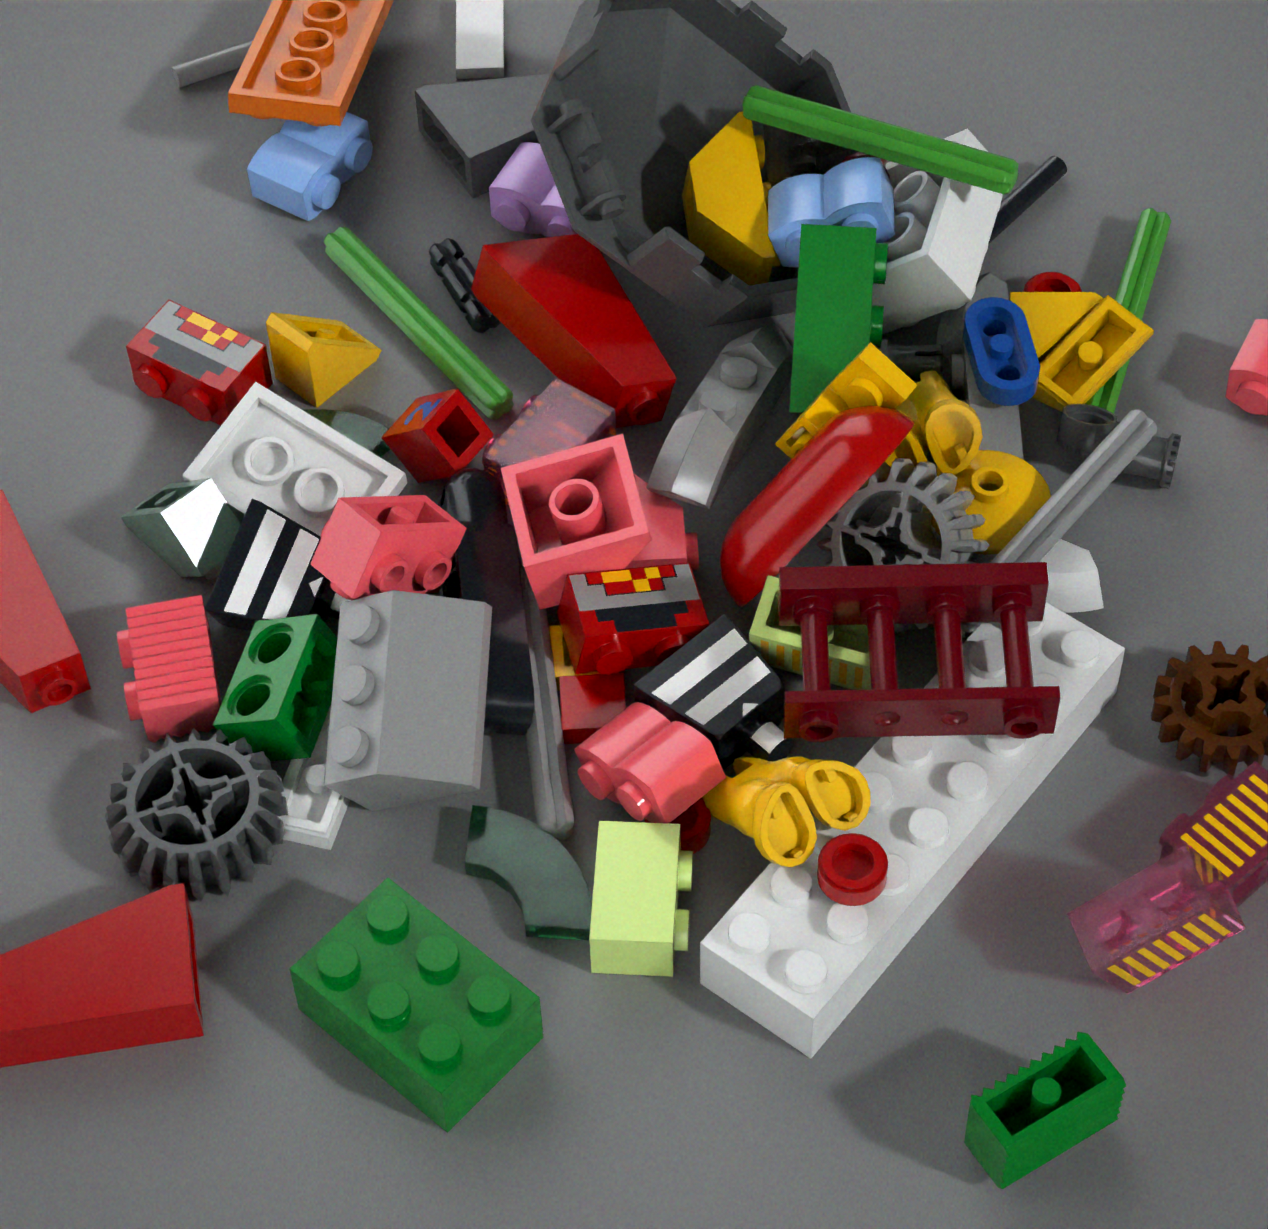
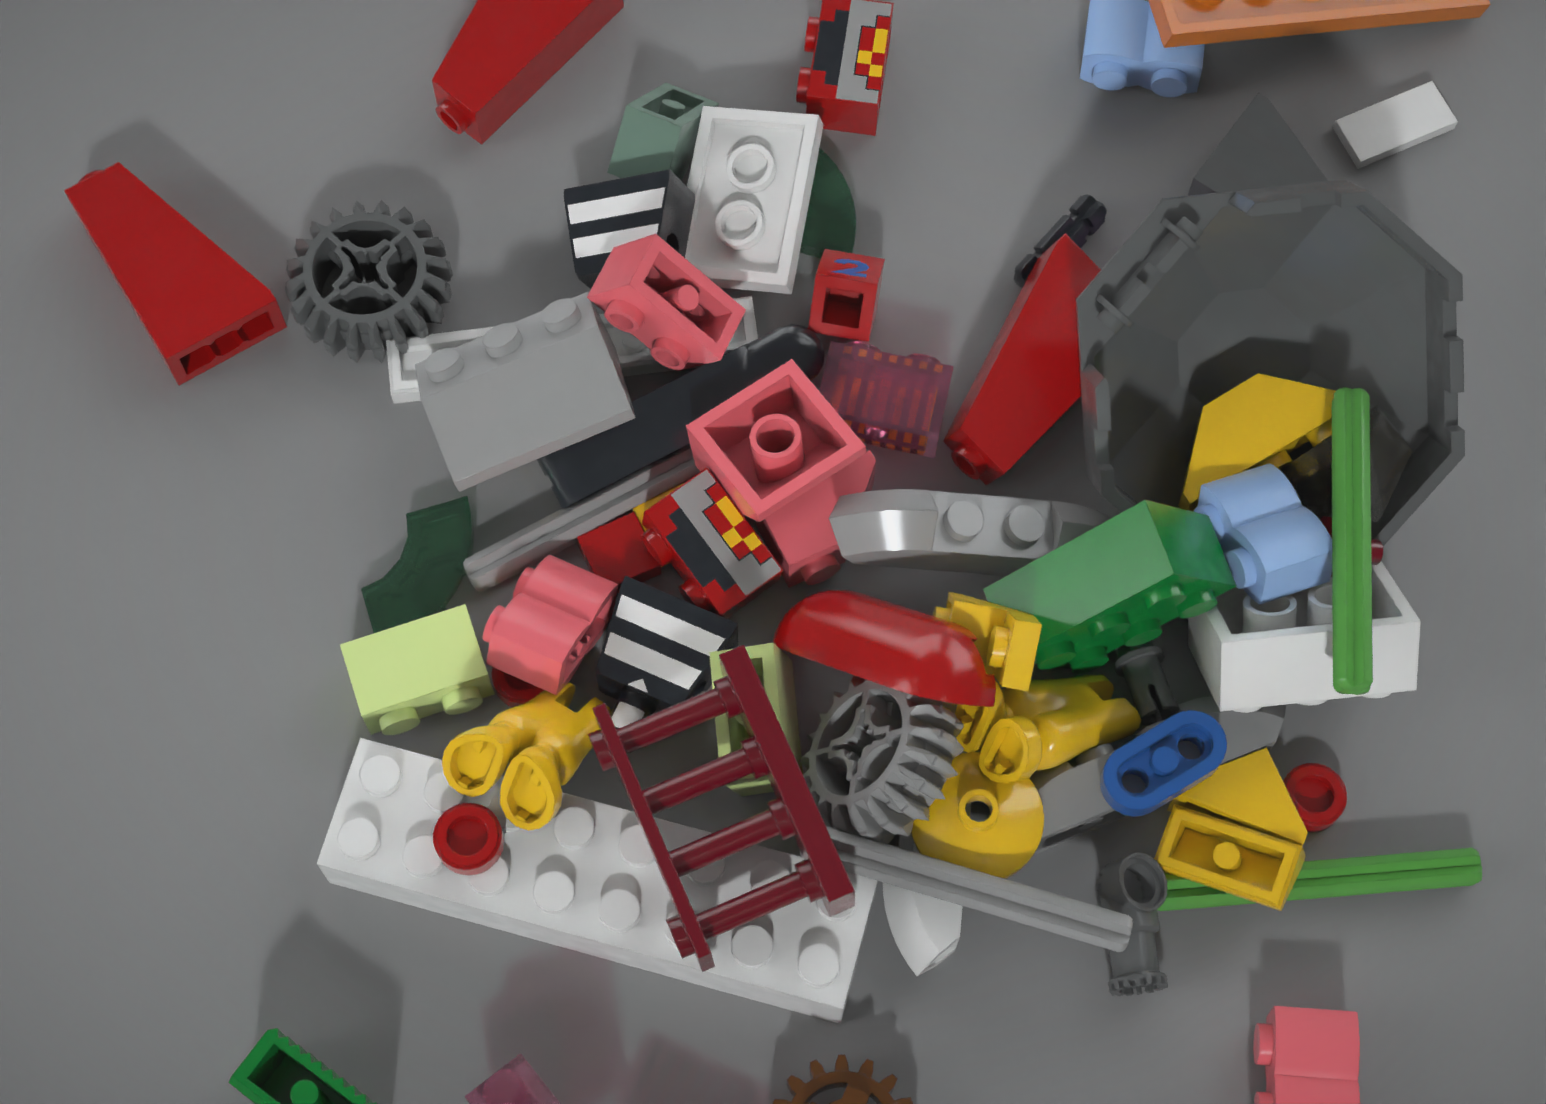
camera: 65 degrees right, 15 degrees up
(172, 667) = (507, 194): coral brick -> none
(281, 687) = (507, 282): green brick -> none
(317, 354) = (913, 156): yellow slope -> none
(417, 1003) = (242, 533): green brick -> none
(419, 323) = (994, 224): bright green axle -> none
(1028, 193) = (1435, 719): black bar -> none

